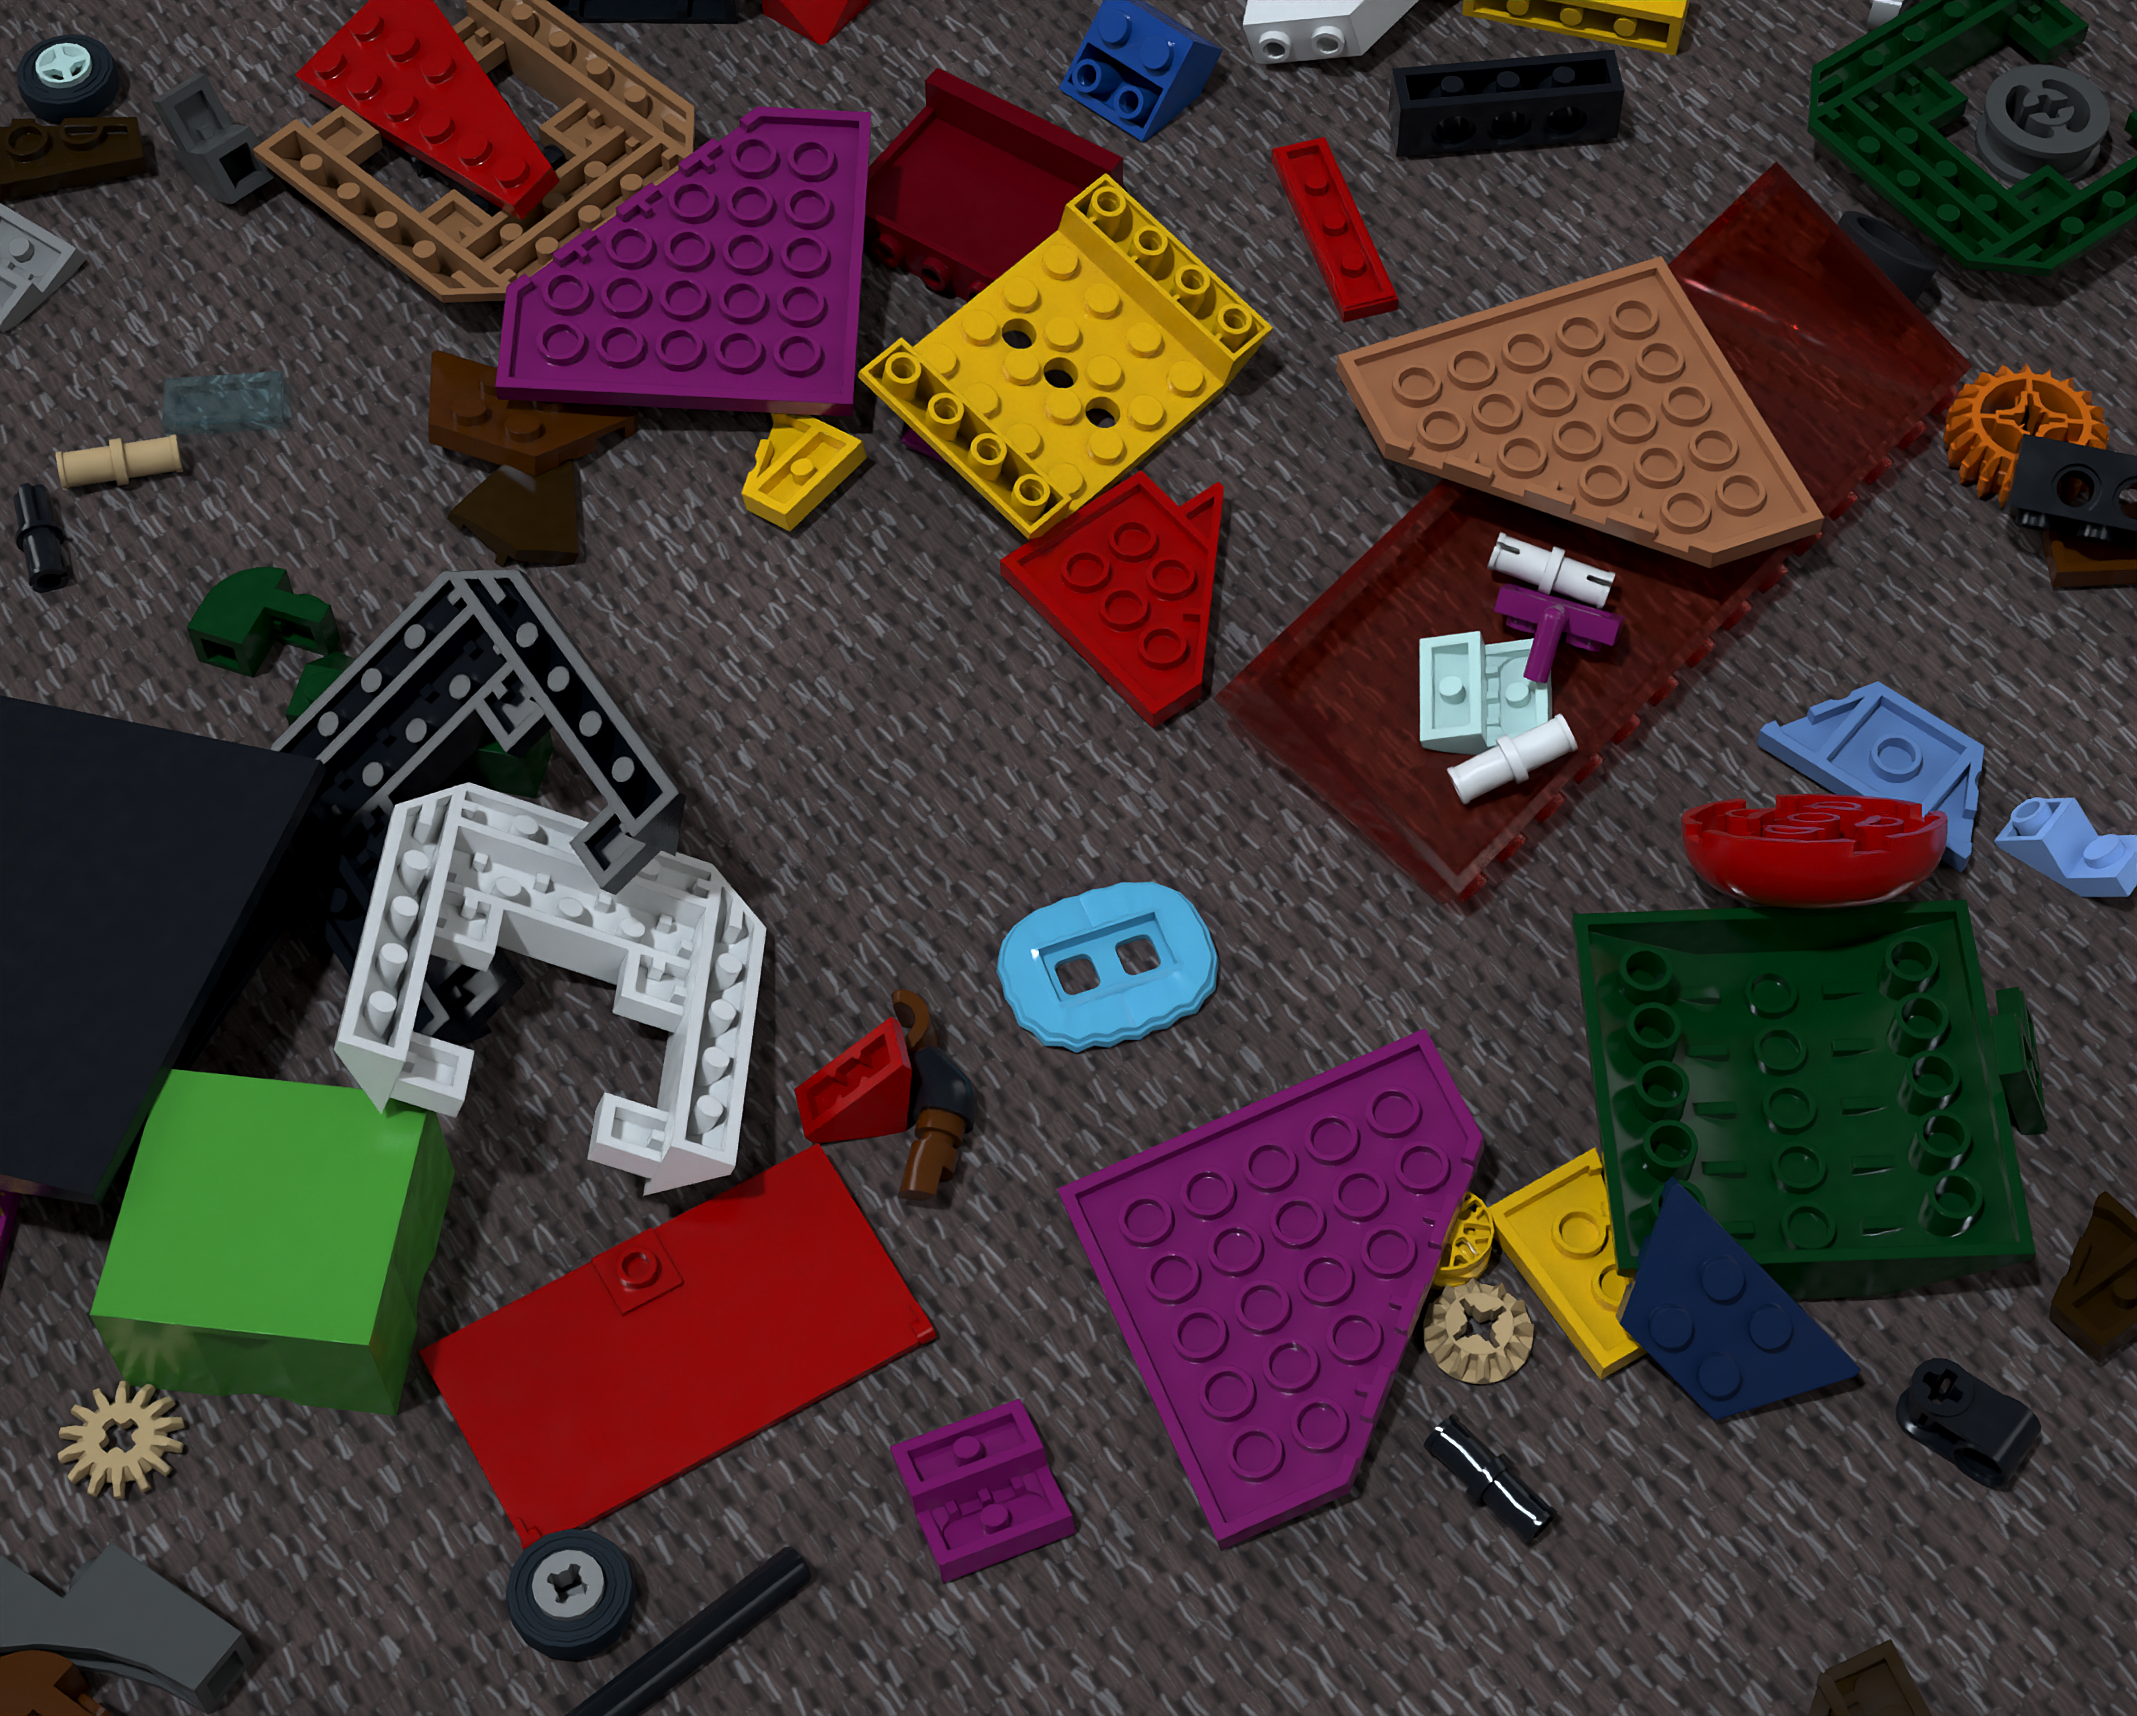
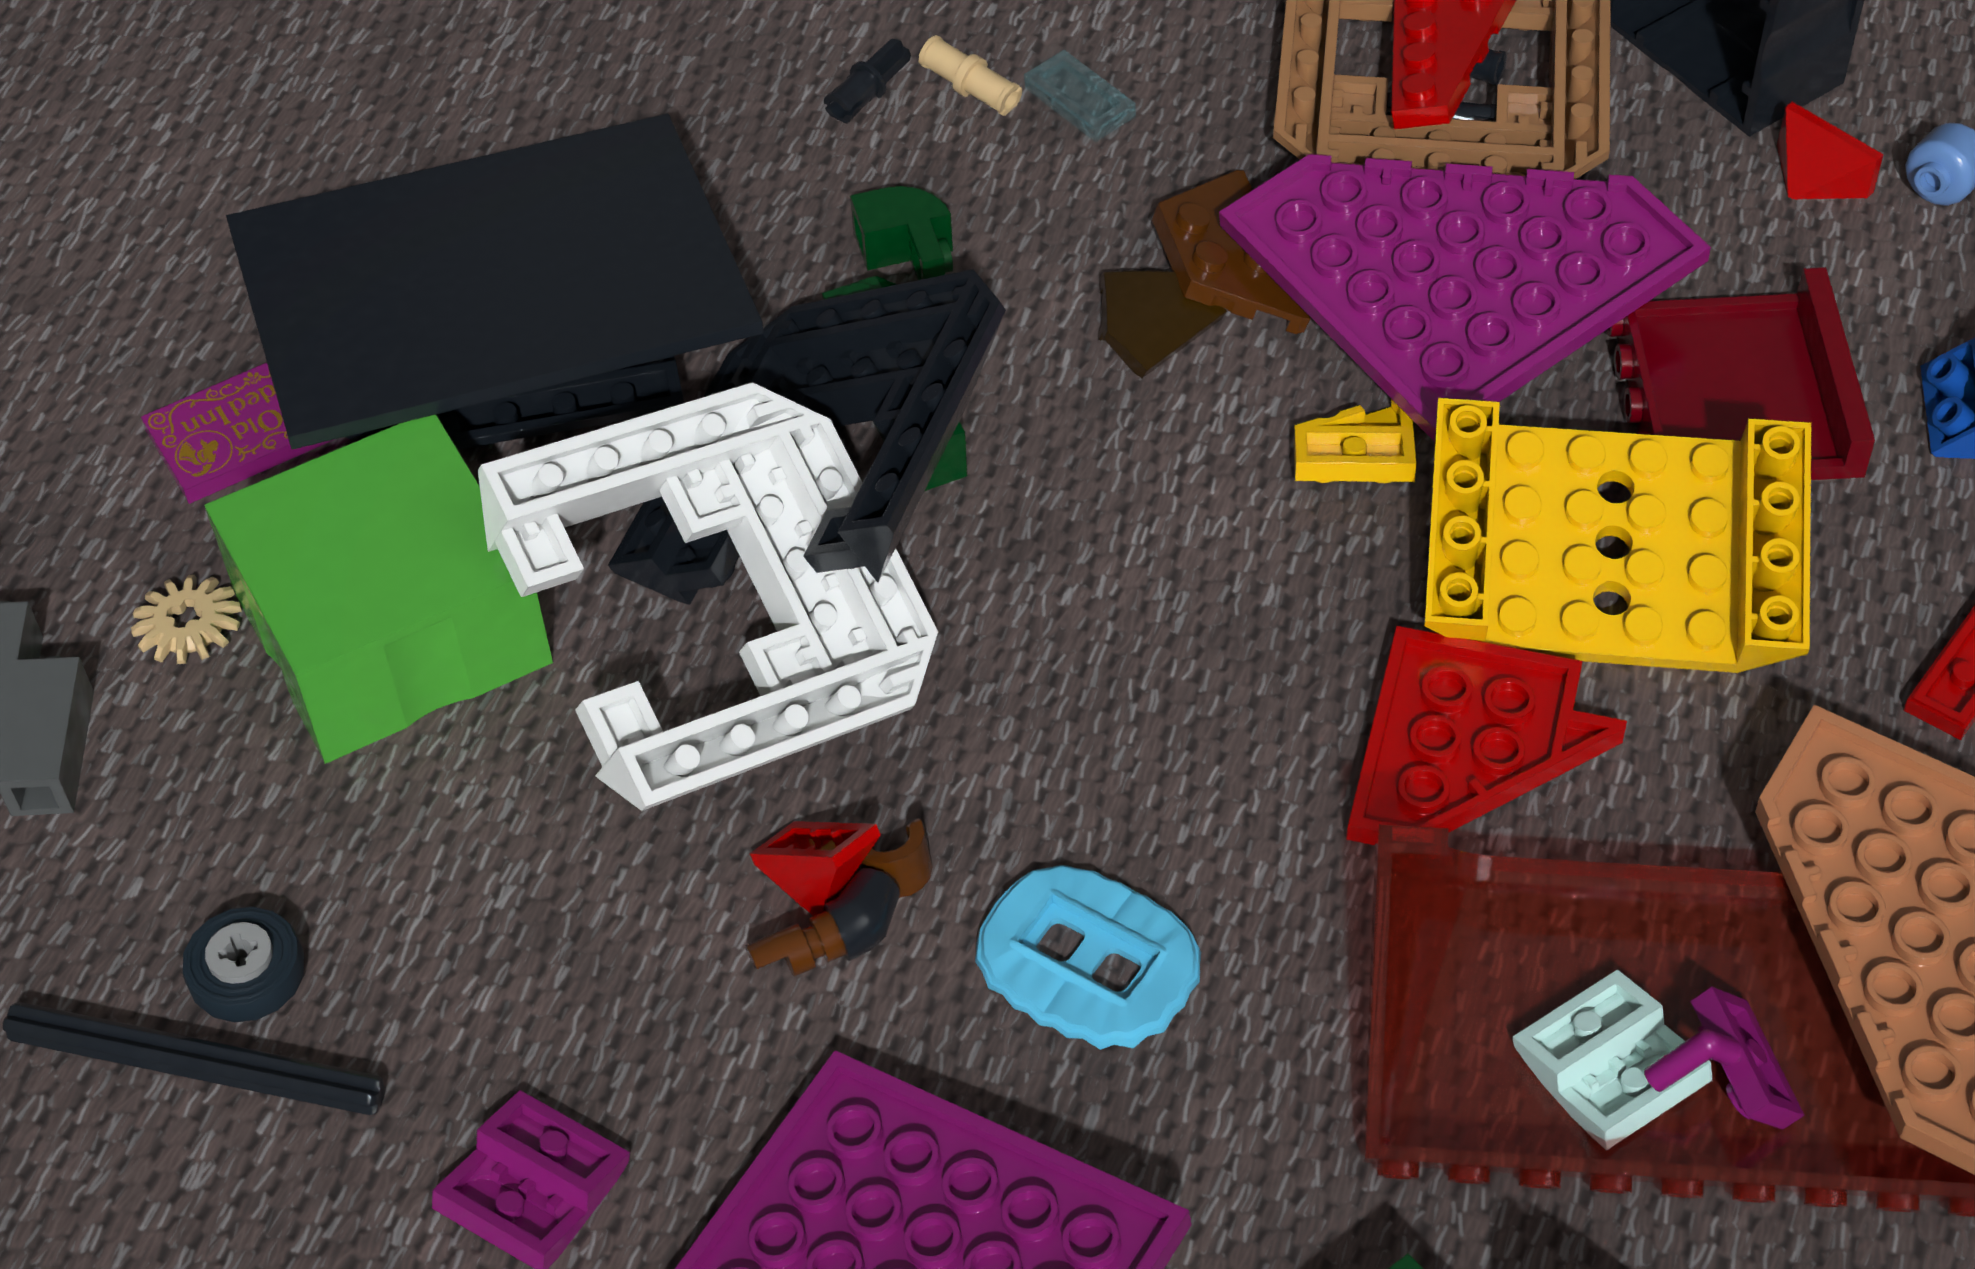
camera: 55 degrees right, 5 degrees down
(675, 1347) = (509, 895): red door -> none
(1512, 759) = (1554, 1116): white pin -> none
(1551, 571) = (1789, 1024): white pin -> none

